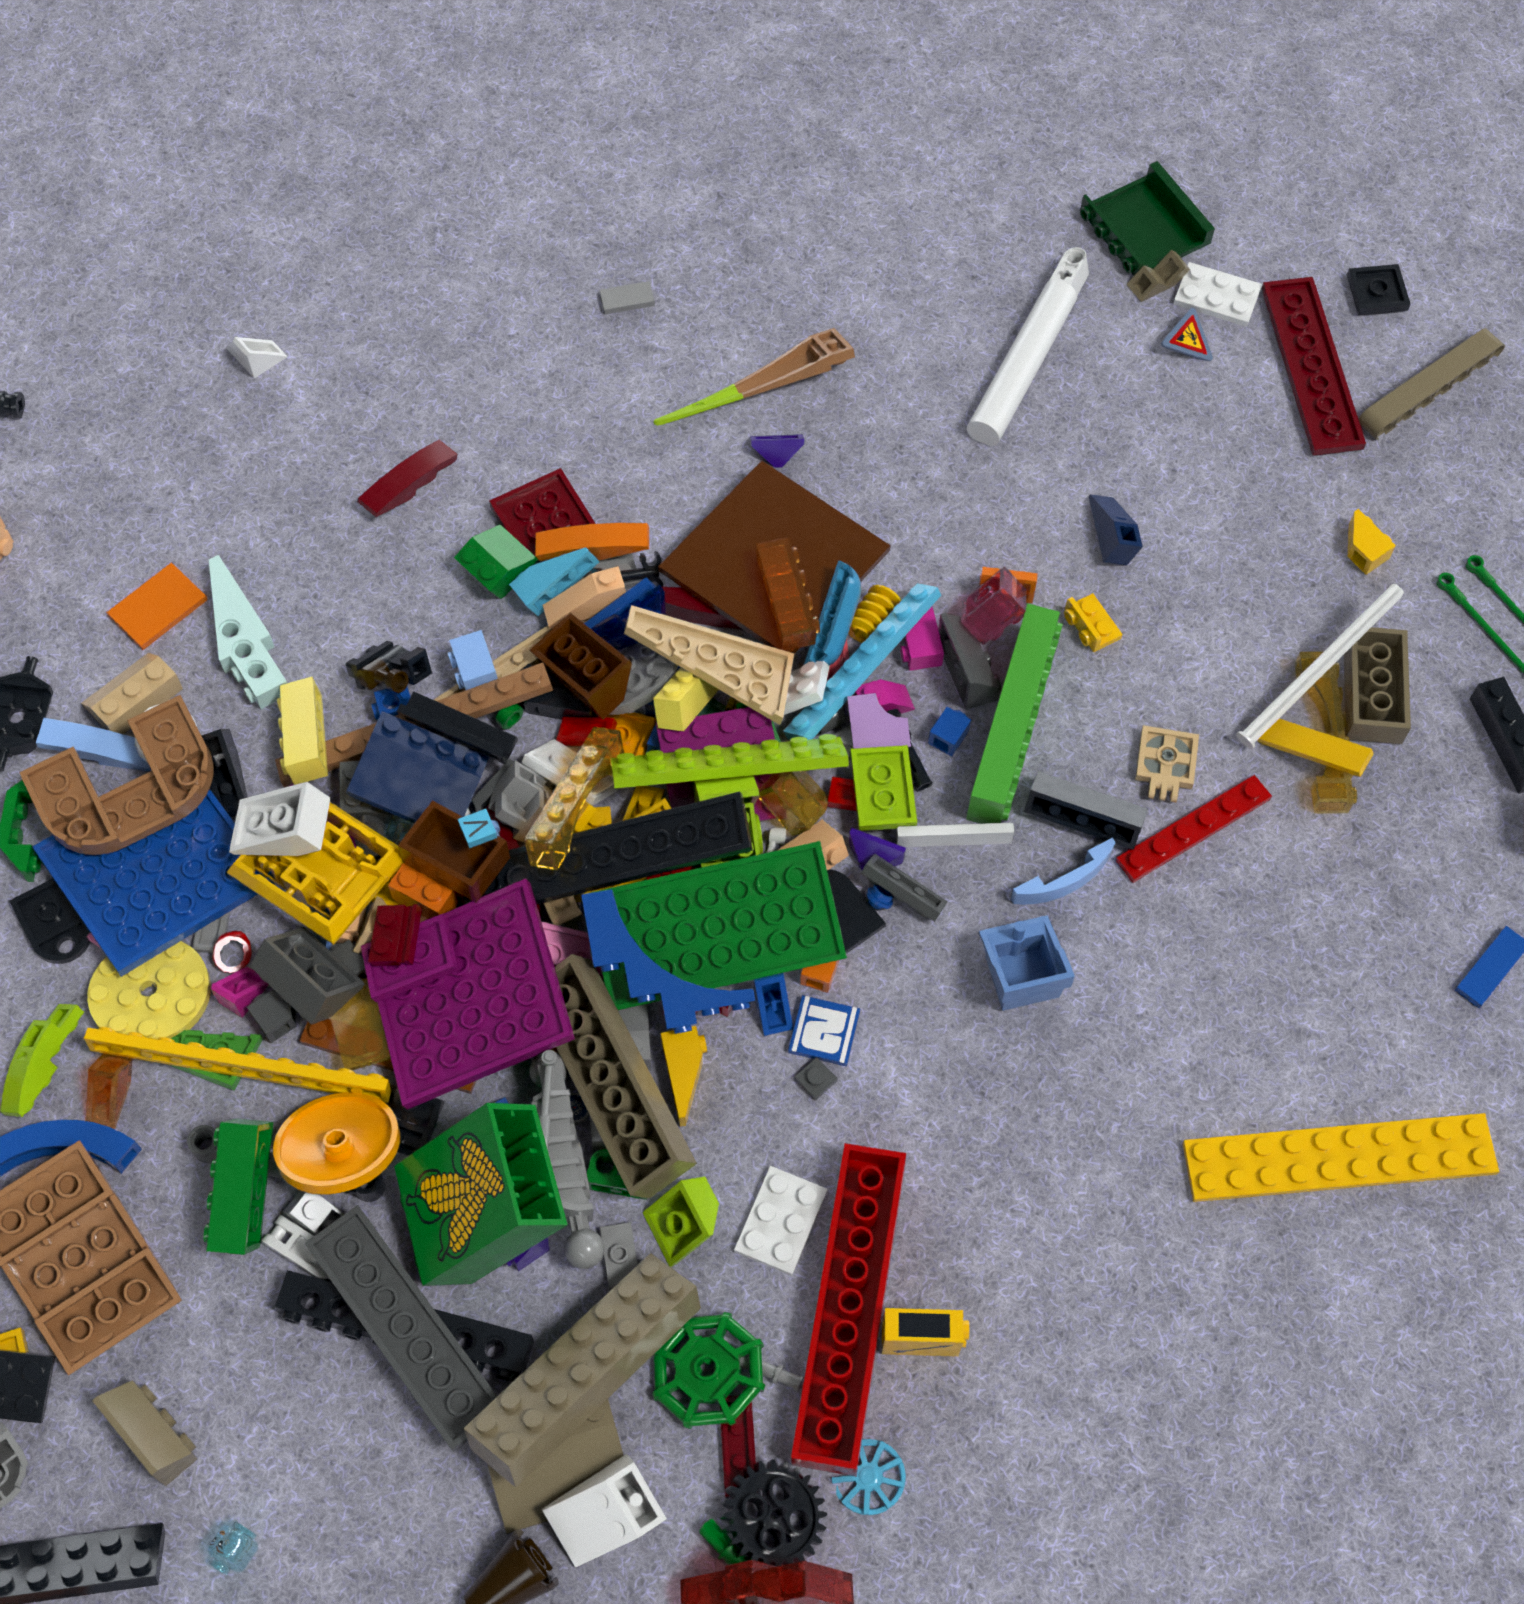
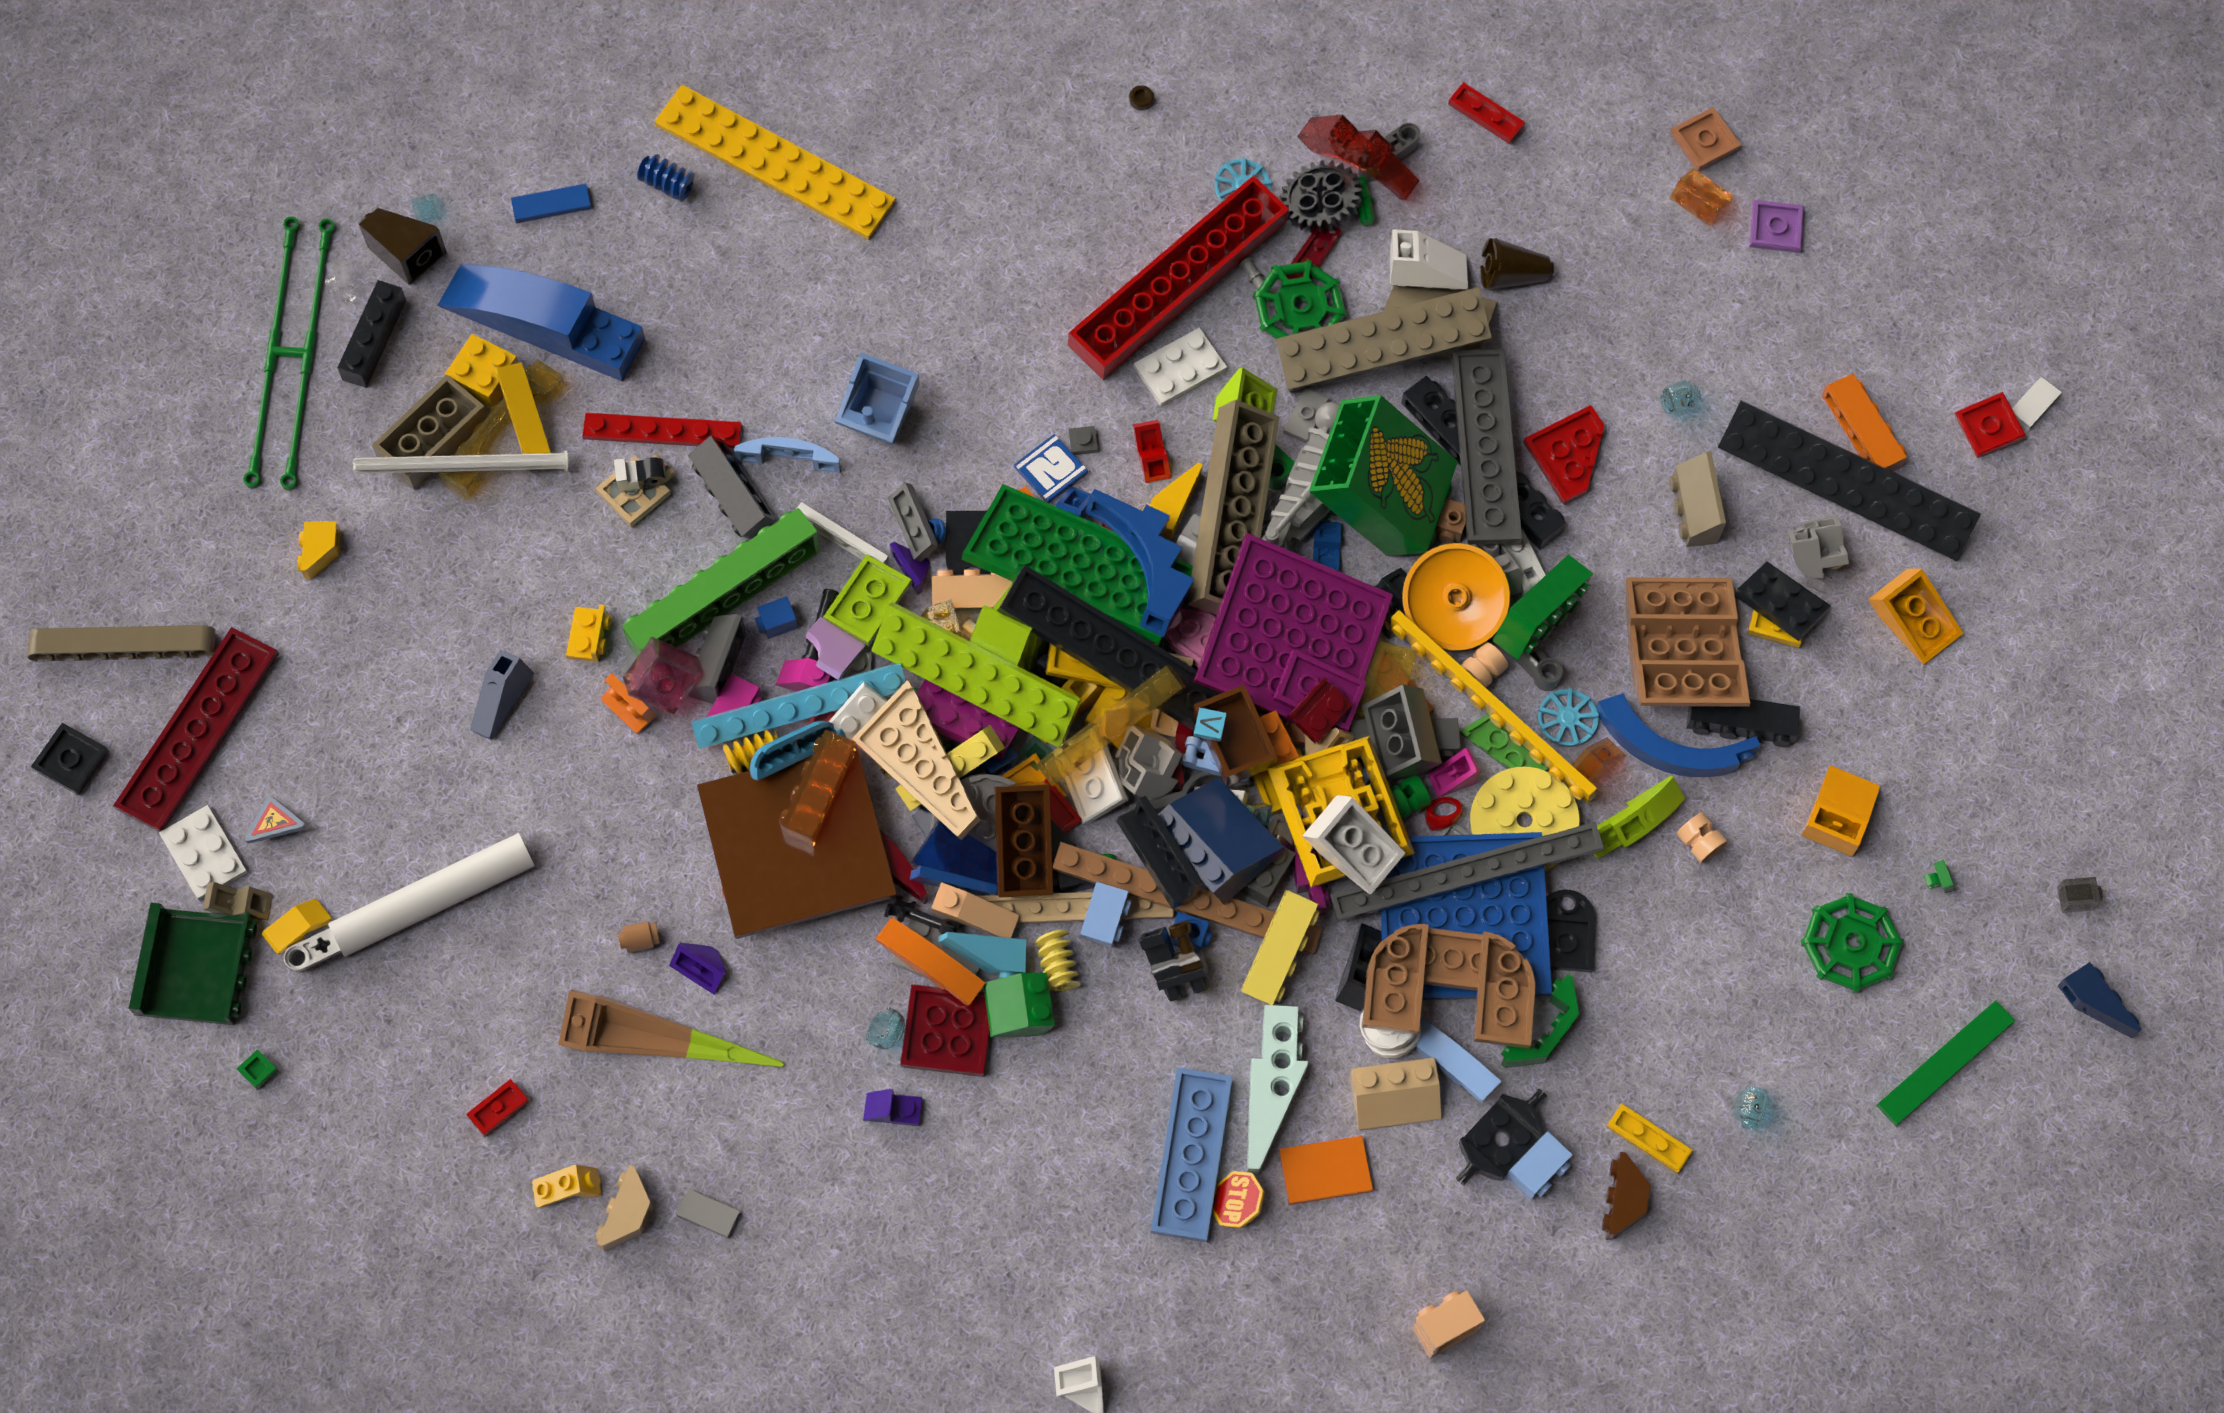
camera: 145 degrees left, 5 degrees up
(146, 908) = (1468, 871): none -> dark grey plate
(162, 1120) = (1568, 716): none -> medium azure wheel
(215, 536) = (1237, 1199): none -> piece
(272, 924) = (1417, 796): none -> green wheel
(275, 1101) = (1486, 664): none -> light nougat wheel
(277, 550) = (1191, 1155): none -> medium blue plate
(322, 1402) = (1568, 452): none -> red plate
(396, 1234) = (1451, 522): none -> medium nougat brick
(404, 479) = (1035, 1146): dark red slope -> none
(489, 614) = (1055, 960): none -> light yellow piece
(547, 440) = (892, 1108): none -> dark purple slope
(590, 477) = (896, 1027): none -> clear light blue hair
(685, 261) = (626, 1212): none -> tan slope
(737, 251) = (565, 1183): none -> yellow bracket
(741, 1110) = (1151, 451): none -> red slope
(840, 267) = (497, 1108): none -> red plate
(841, 432) = (639, 936): none -> medium nougat brick
(924, 1332) = (1143, 226): yellow brick -> none
(1033, 190) = (257, 1069): none -> green plate
(1052, 1505) = (1141, 97): none -> dark brown tile
(1099, 287) = (295, 925): none -> yellow slope
(1173, 760) = (639, 473): none -> leg
(1386, 846) = (545, 315): none -> blue slope
(1394, 768) = (476, 369): none -> yellow brick
(1417, 1058) = (665, 178): none -> blue piece

